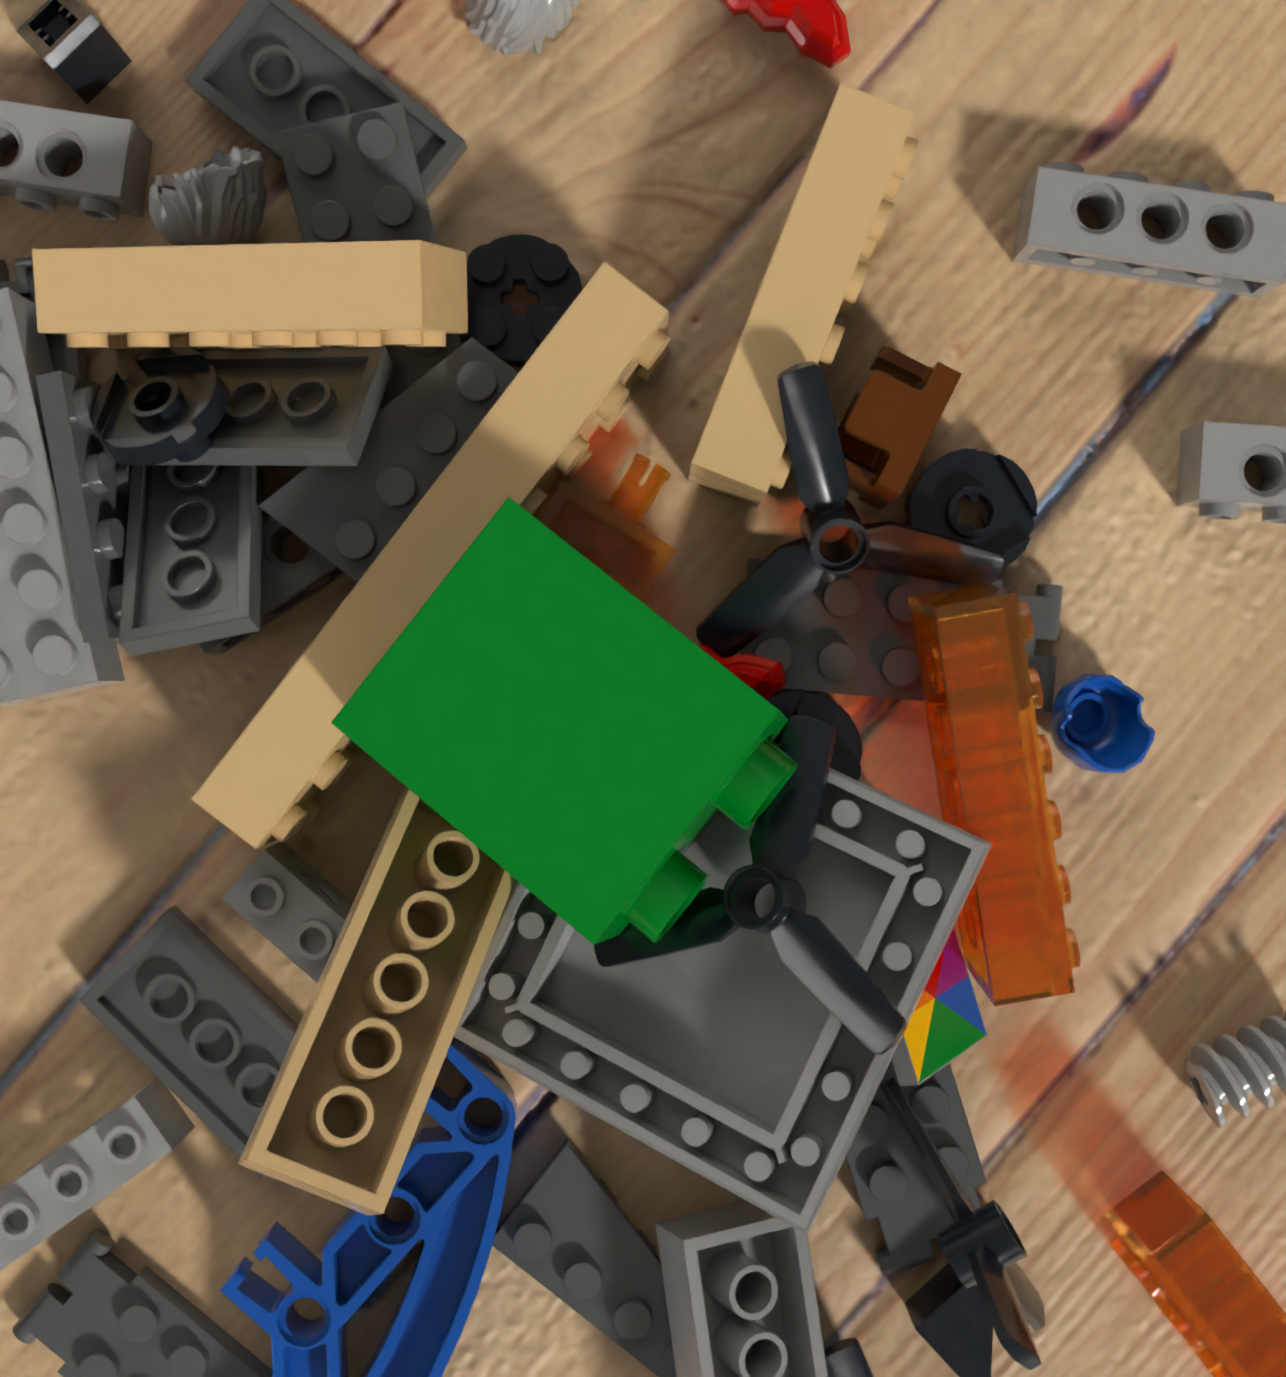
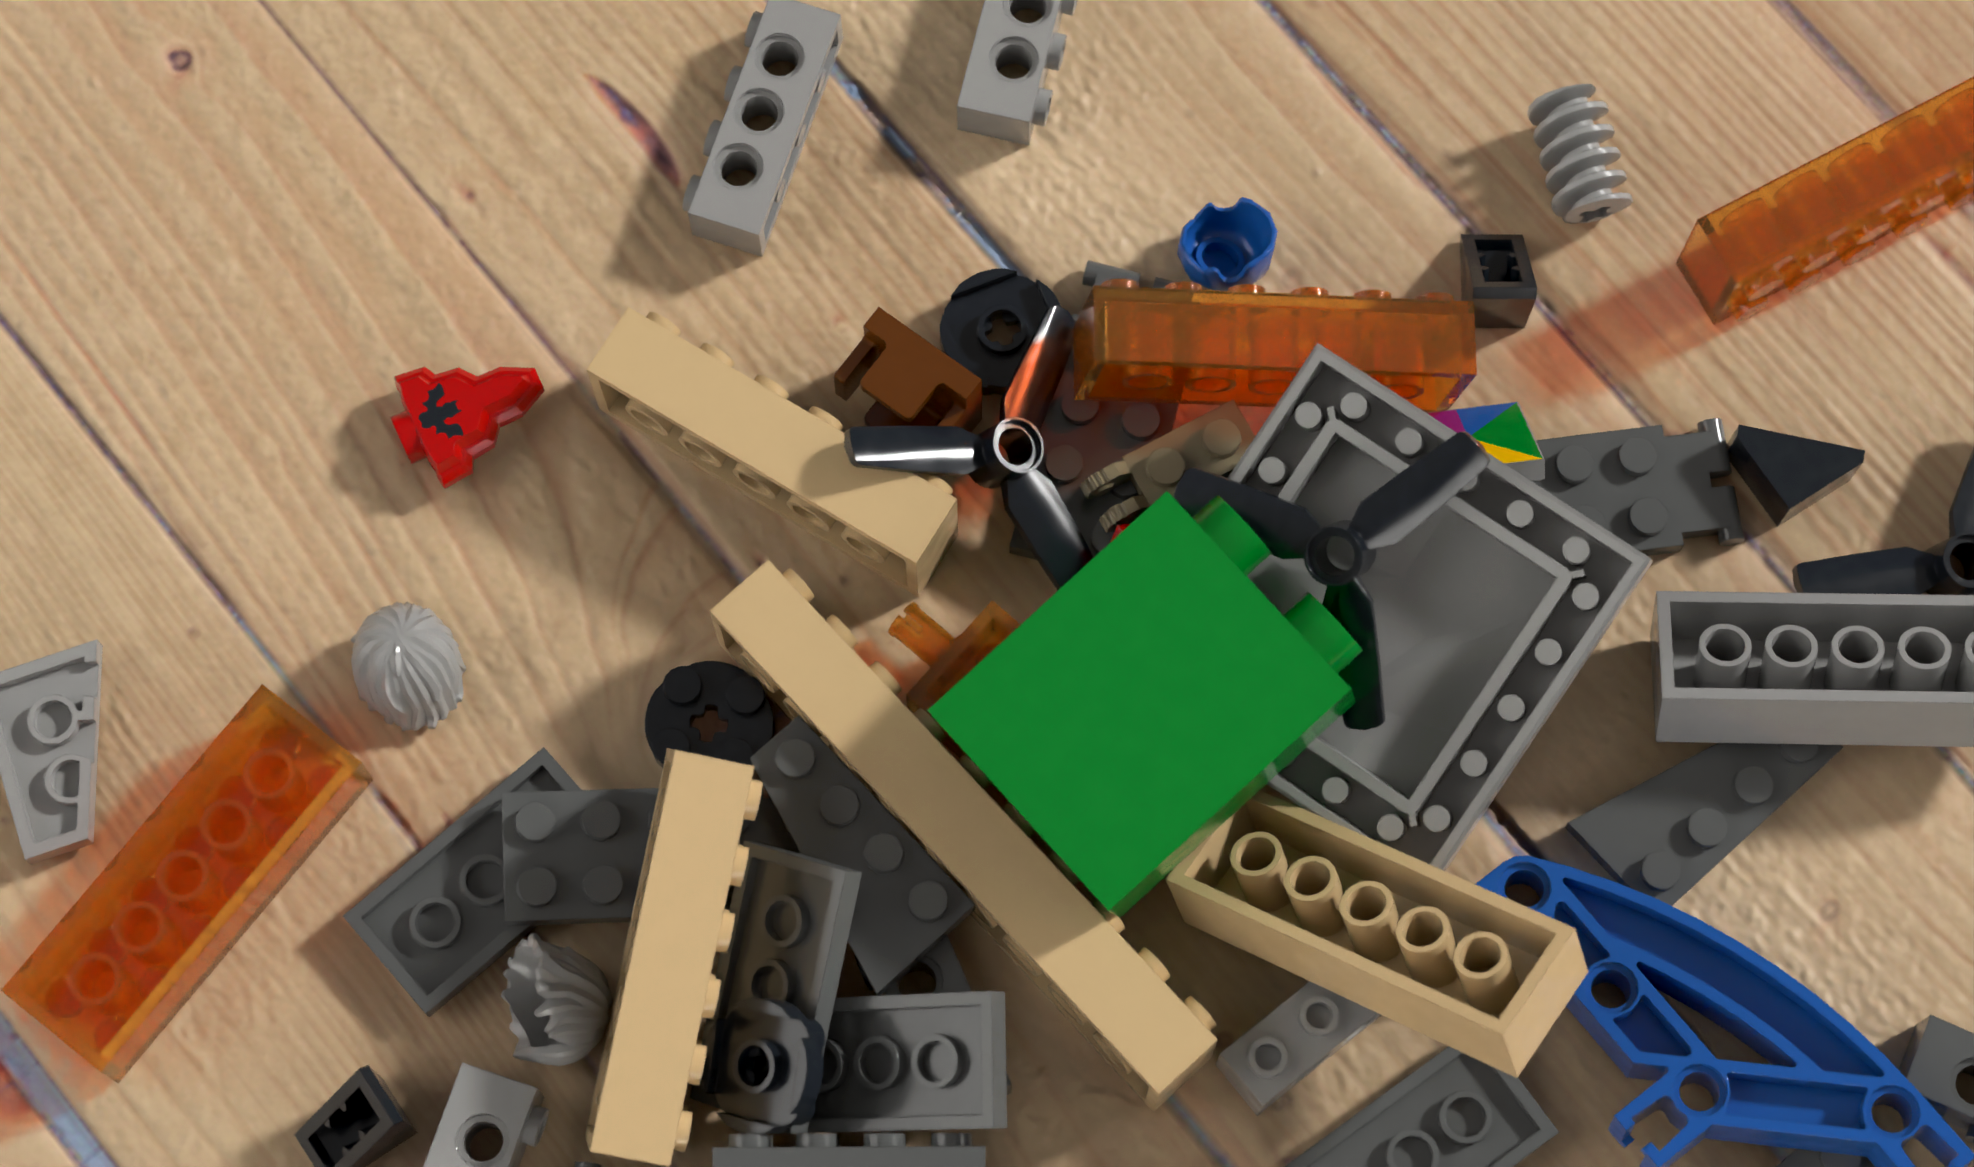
camera: 80 degrees left, 15 degrees down
(859, 710) = (1208, 442): none -> dark tan hinge
(979, 1246) = (1700, 425): black piece -> none
(1113, 1000) = (1497, 279): none -> black slope

